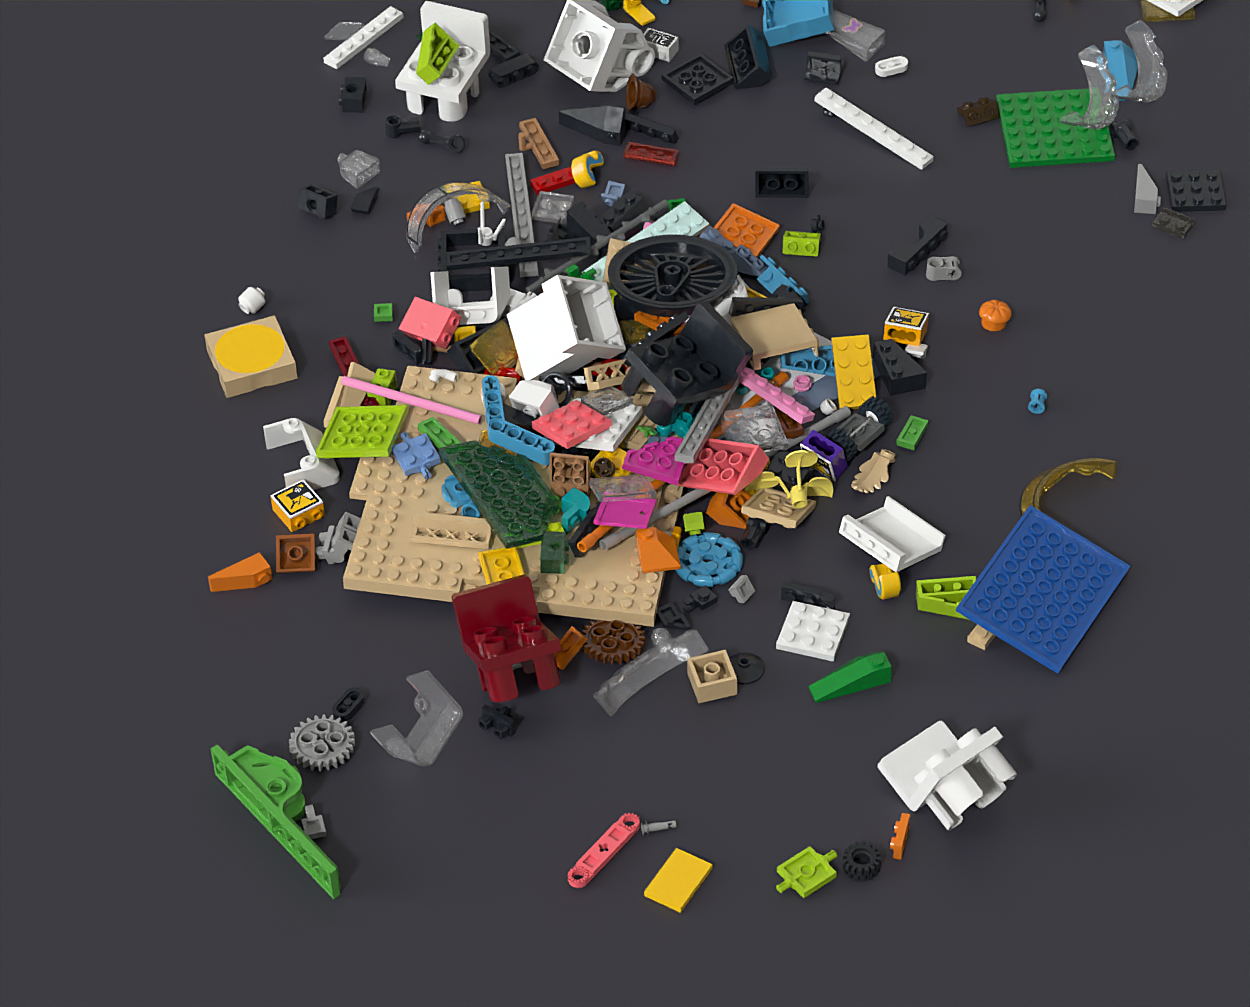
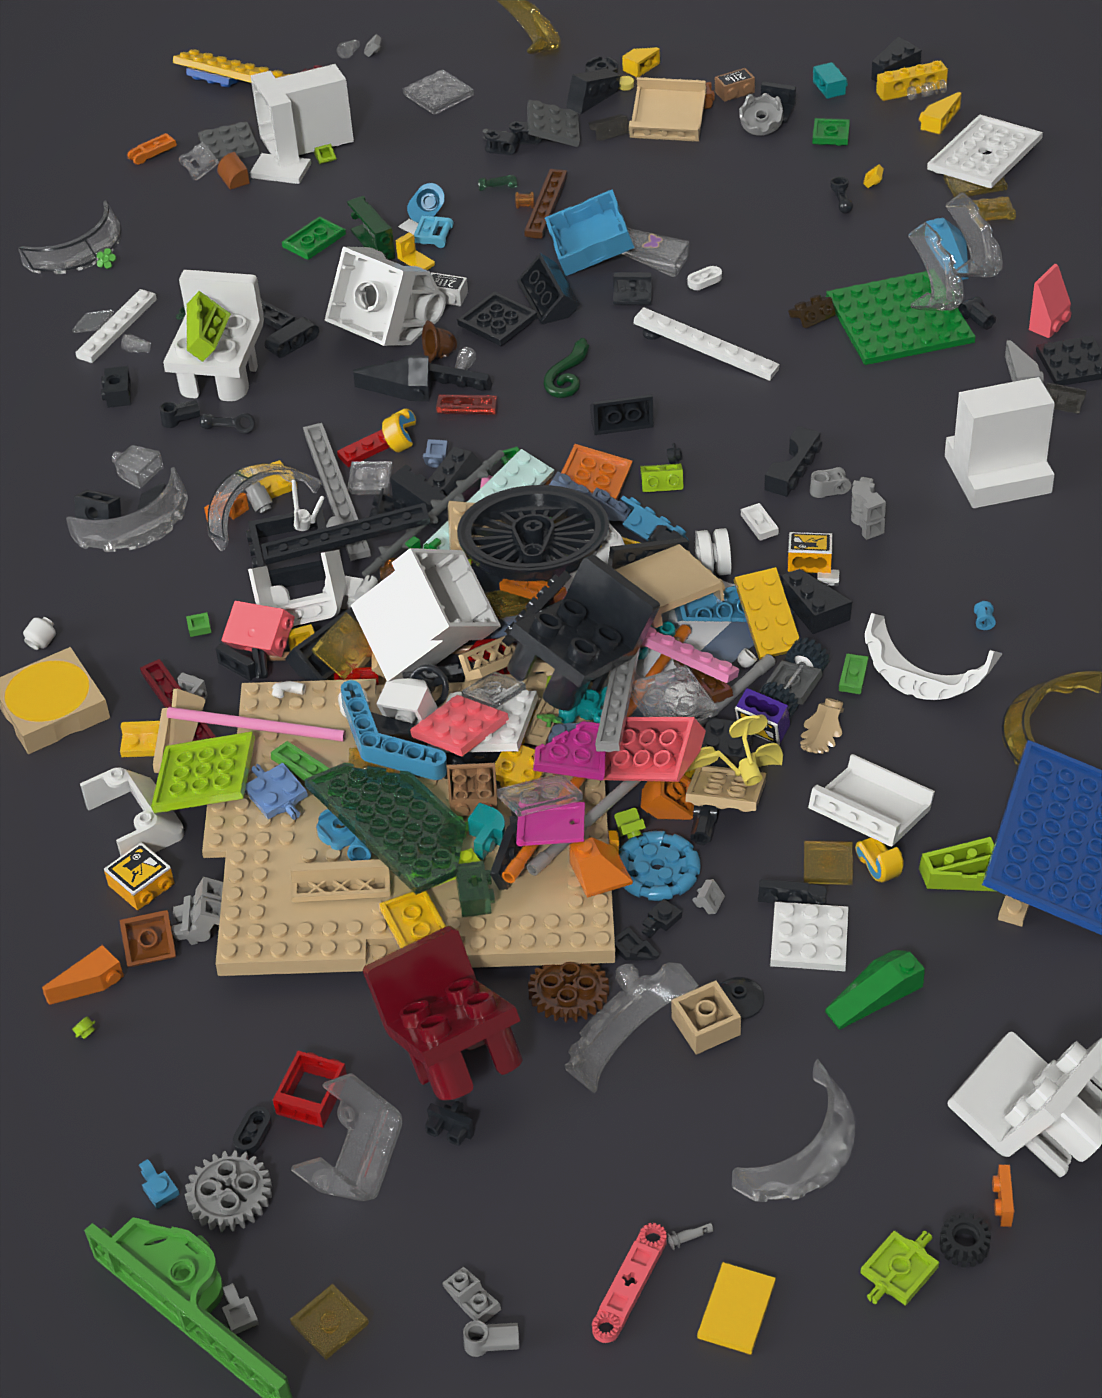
camera: 10 degrees left, 0 degrees up
(235, 611) = (84, 1027): none -> lime plate
(270, 733) = (158, 1187): none -> dark azure plate
(316, 398) = (139, 738): none -> yellow bracket
(350, 222) = (136, 528): none -> clear windscreen
(367, 361) = (192, 685): none -> light grey bracket
(377, 841) = (329, 1321): none -> clear yellow plate
(386, 379) = (219, 703): lime bracket -> none
(388, 695) = (299, 1108): none -> red window
(485, 841) = (471, 1296): none -> light grey slope
(485, 869) = (493, 1336): none -> light grey piece
(537, 142) = (335, 408): medium nougat plate -> none
(570, 645) = (523, 999): orange plate -> none
(601, 466) = (508, 772): dark brown wheel -> none
(660, 112) = (465, 358): none -> clear cone
(757, 124) = (574, 358): none -> dark green plant
(766, 791) = (813, 1165): none -> clear windscreen
(802, 383) = (708, 635): bright pink plate -> none
(823, 314) = (715, 552): none -> white wheel
(845, 578) = (828, 862): none -> clear yellow plate
(873, 293) = (759, 521): none -> white plate
(956, 441) = (911, 679): none -> white windscreen
(966, 295) = (868, 508): none -> light grey hips
(994, 315) = (903, 525): orange piece -> none
(1096, 256) = (1002, 442): none -> white piece
(1174, 37) = (995, 208): none -> clear yellow plate
(1187, 135) = (1049, 303): none -> coral slope

